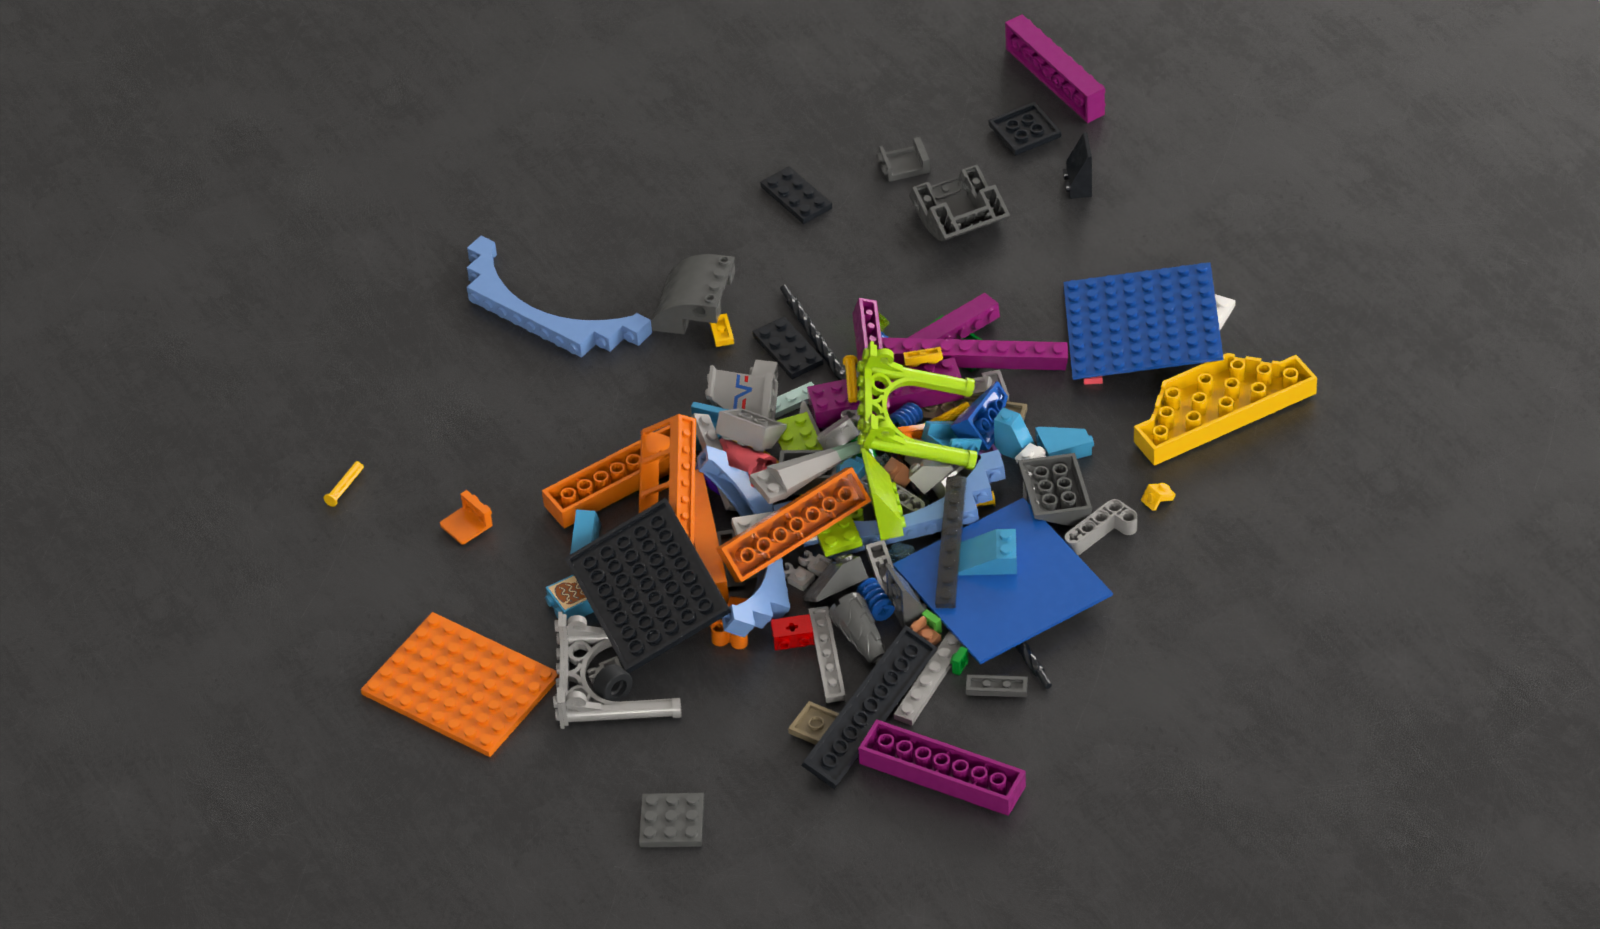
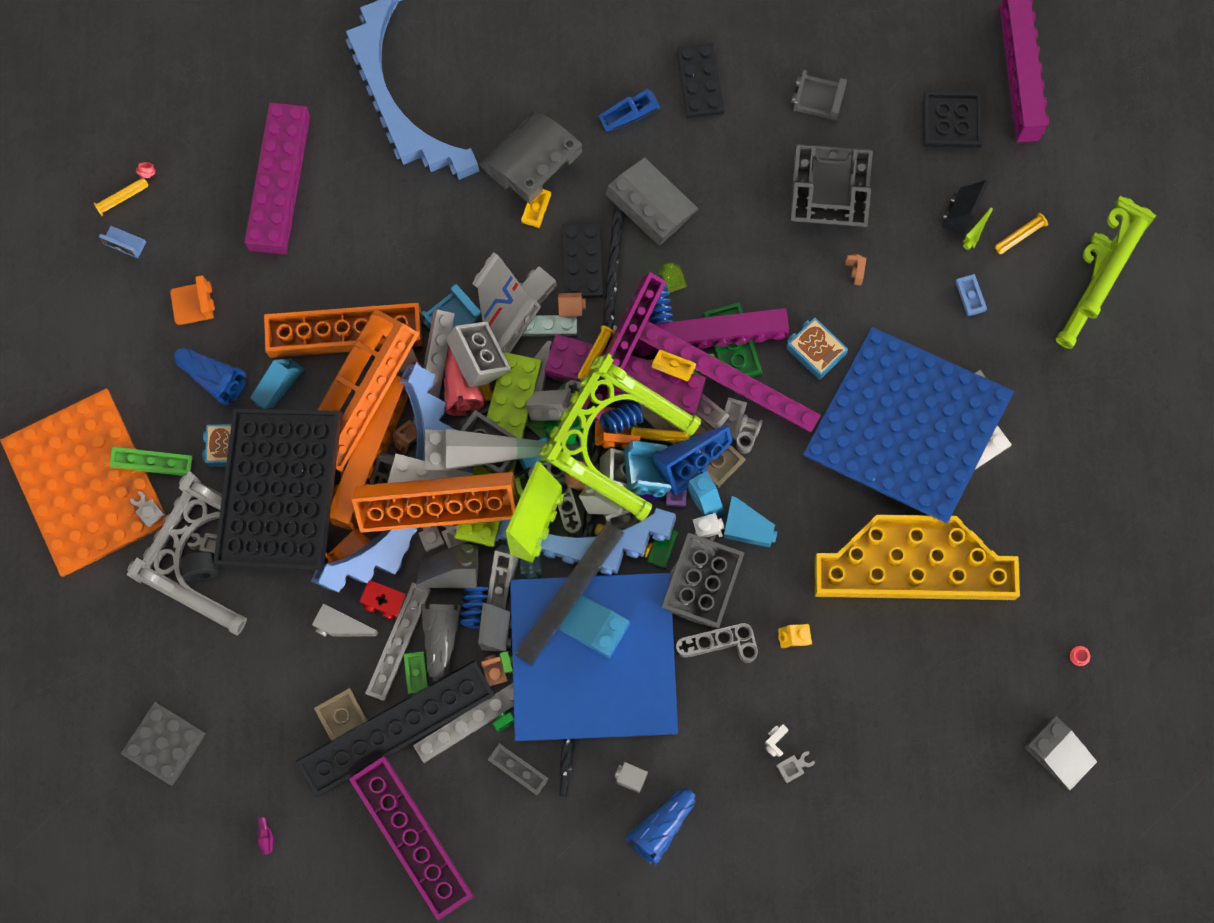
camera: 30 degrees right, 30 degrees up
(354, 456) = (145, 170): none -> coral plate
(370, 513) = (123, 241): none -> medium blue panel
(480, 408) = (277, 178): none -> magenta brick
(513, 635) = (150, 461): none -> bright green plate
(528, 555) = (216, 378): none -> blue cone
(536, 668) = (147, 511): none -> light grey plate
(724, 519) = (404, 437): none -> nougat bracket
(752, 236) = (629, 110): none -> blue slope
(767, 665) = (340, 625): none -> light grey slope
(801, 374) = (571, 304): none -> nougat brick
(812, 834) = (264, 837): none -> magenta piece
(816, 283) = (651, 201): none -> dark grey slope
(856, 664) = (415, 672): none -> bright green plate
(1003, 493) = (661, 551): none -> green tile
(1016, 388) = (748, 431): none -> light grey piece
(1022, 247) = (858, 263): none -> nougat bracket
(1029, 312) = (816, 348): none -> brick
(1096, 638) = (631, 777): none -> light grey brick
(1100, 188) = (973, 236): none -> lime piece
(1127, 226) = (971, 295): none -> medium blue plate
(1145, 158) = (1021, 233): none -> yellow axle
(1145, 666) = (657, 831): none -> blue cone
(1195, 567) = (776, 734): none -> white bracket
(1222, 148) = (1108, 263): none -> lime arch
(1224, 576) = (792, 768): none -> light grey plate
(1395, 401) = (1080, 656): none -> coral plate
(1428, 464) = (1061, 753): none -> slope

